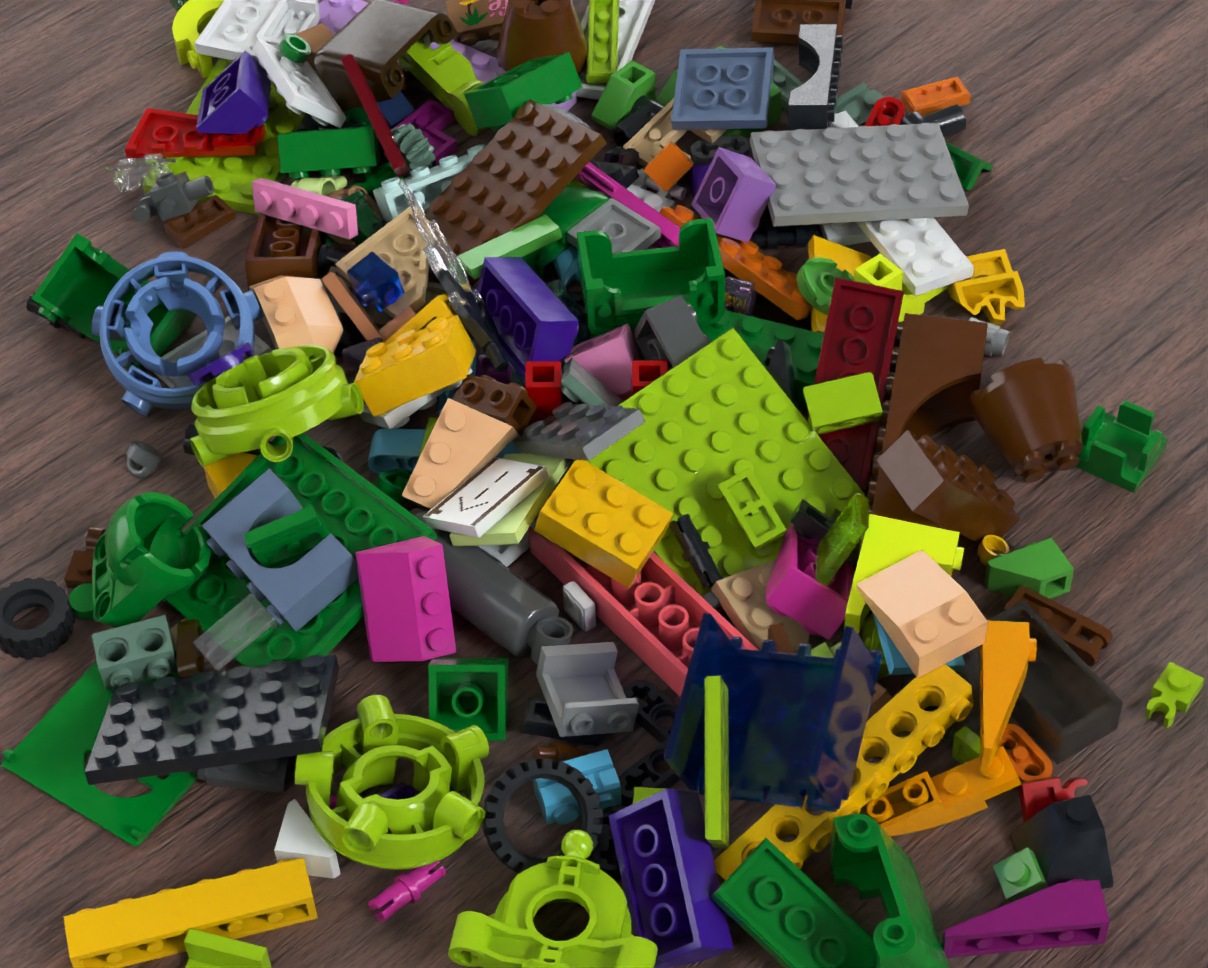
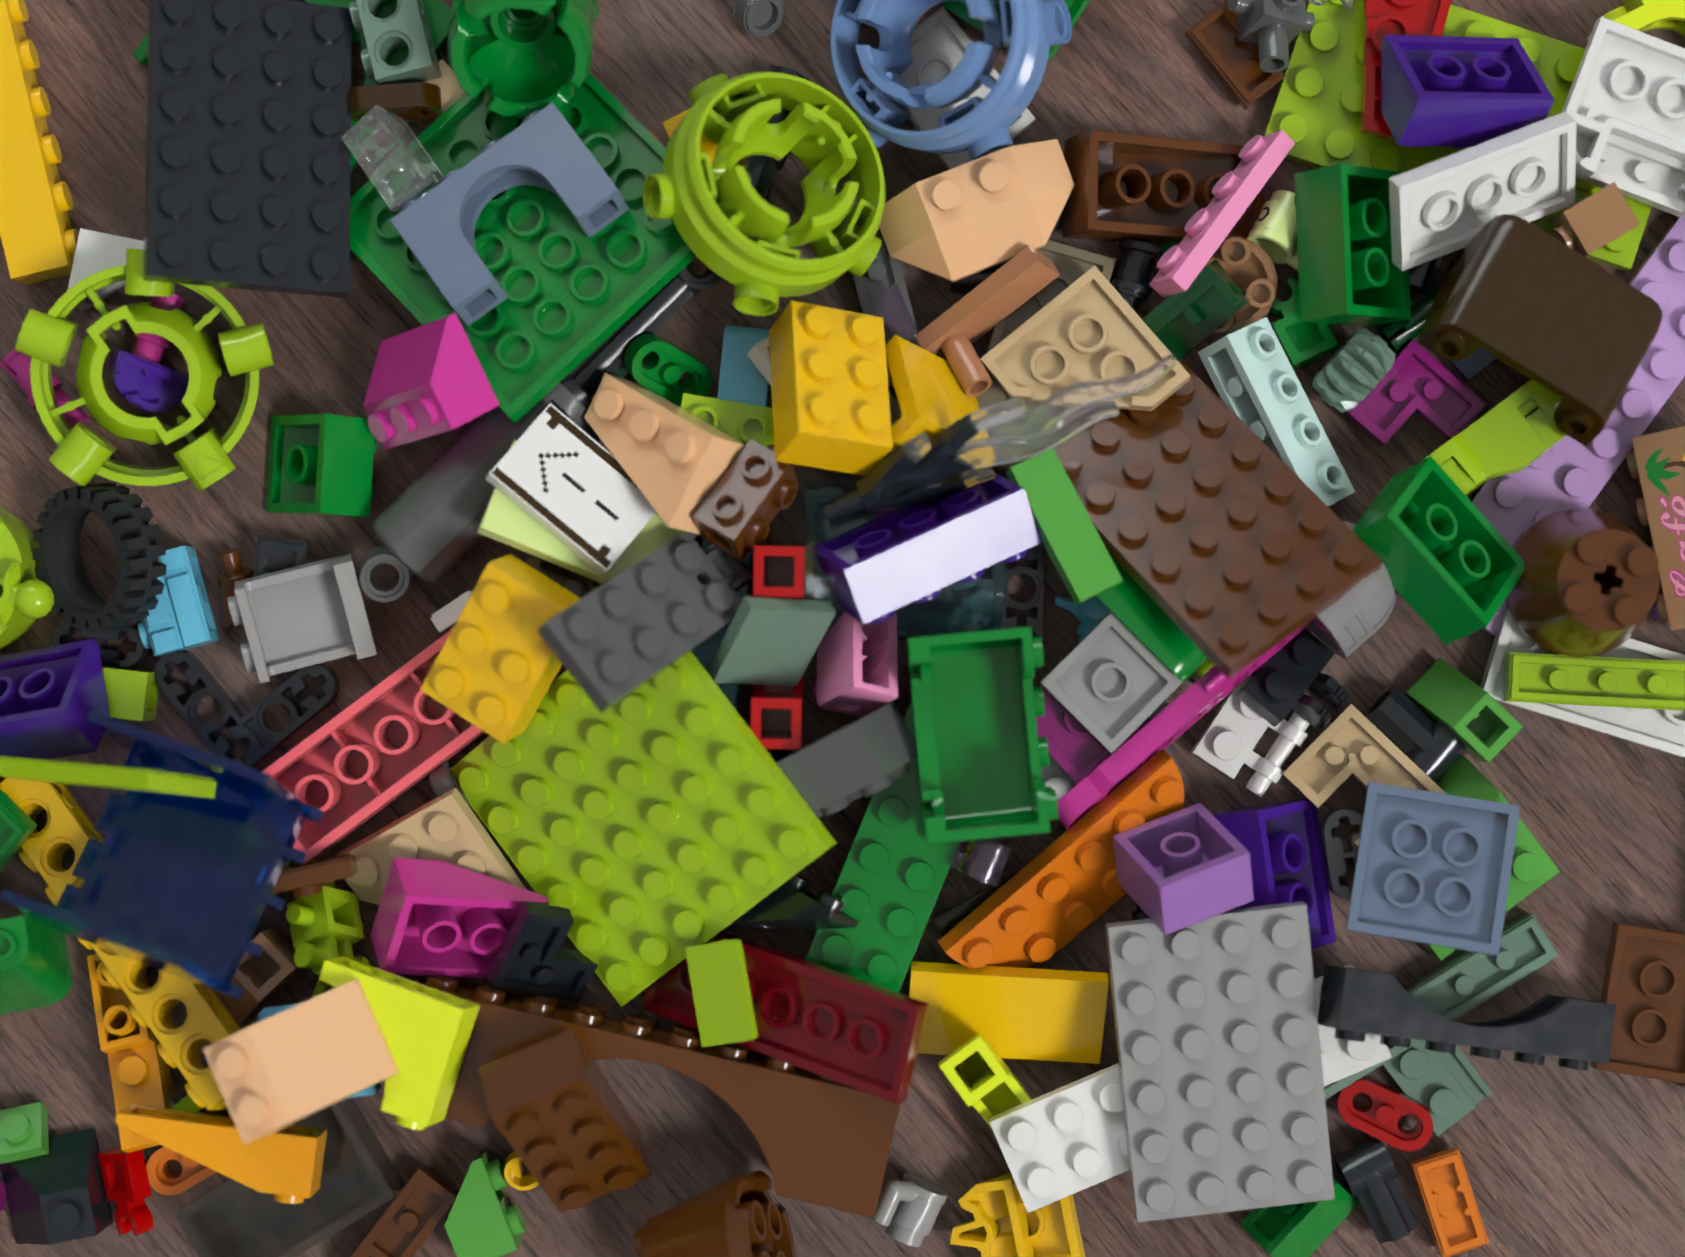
camera: 90 degrees right, 40 degrees up
(221, 364) = (852, 113): dark purple tile -> none
(287, 537) = (512, 212): green plate -> none
(294, 48) = (1570, 180): green tile -> none
(375, 115) = (1374, 314): dark red tile -> none
(375, 282) = (1024, 326): clear blue brick -> none
(668, 166) = (1285, 772): orange panel -> none
(695, 551) = (496, 770): black pin -> none
(752, 509) = (549, 851): lime hinge -> none
(817, 280) = (996, 993): bright green tile -> none
(842, 538) = (461, 969): clear neon green tile -> none

